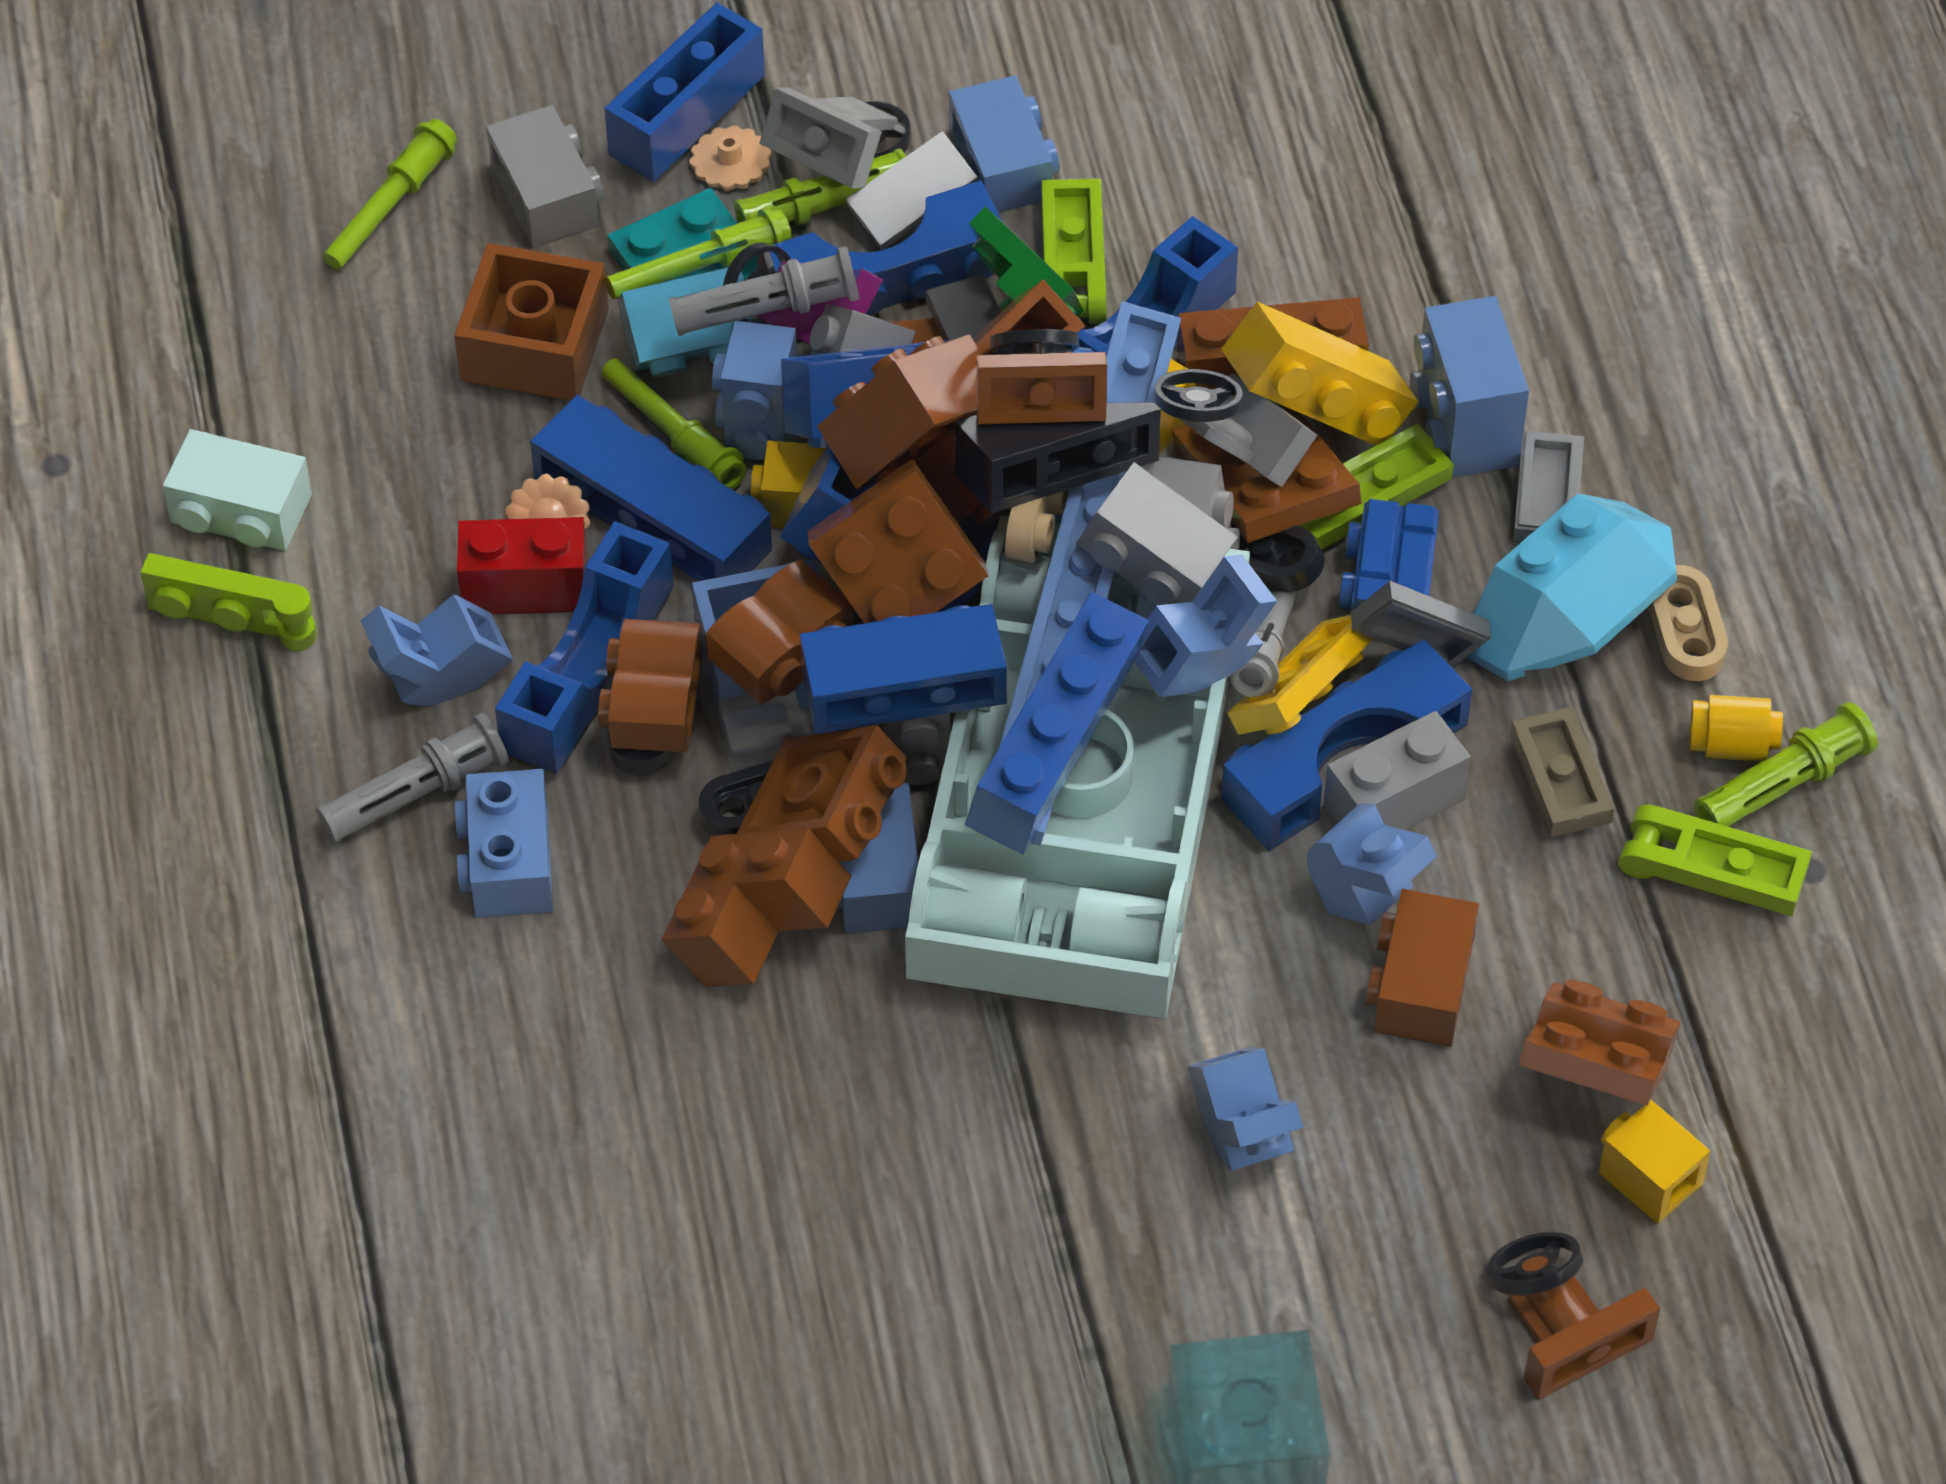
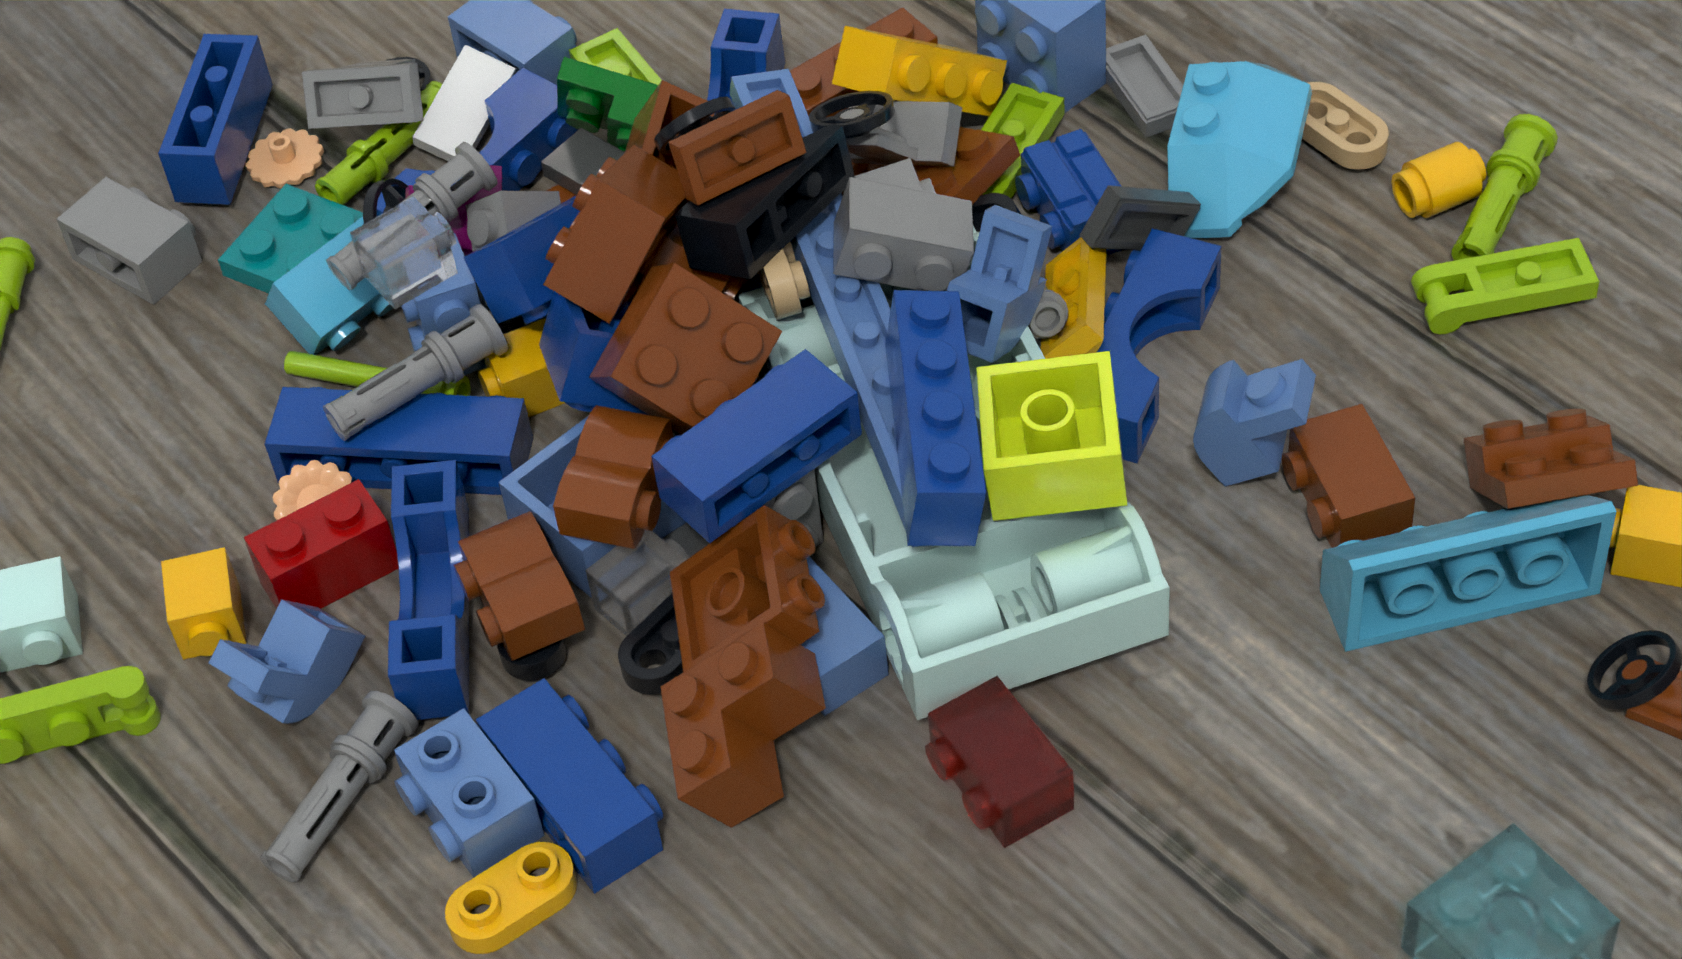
camera: 25 degrees left, 5 degrees down
(401, 560) = (202, 602): none -> yellow brick
(490, 949) = (514, 897): none -> yellow plate
(531, 322) = (199, 352): dark orange brick -> none
(596, 879) = (575, 784): none -> blue brick
(716, 441) = (440, 359): none -> light grey pin
(733, 328) = (405, 251): none -> clear brick
(766, 227) = (348, 199): lime pin -> none
(948, 1050) = (999, 762): none -> clear red brick
(1148, 792) = (1050, 436): none -> neon yellow brick
(1243, 1107) = (1291, 674): medium blue brick -> none
(1402, 773) = (1217, 327): light grey brick -> none
(1454, 1098) = (1466, 569): none -> medium azure slope
(1561, 771) = (1331, 280): dark tan plate -> none

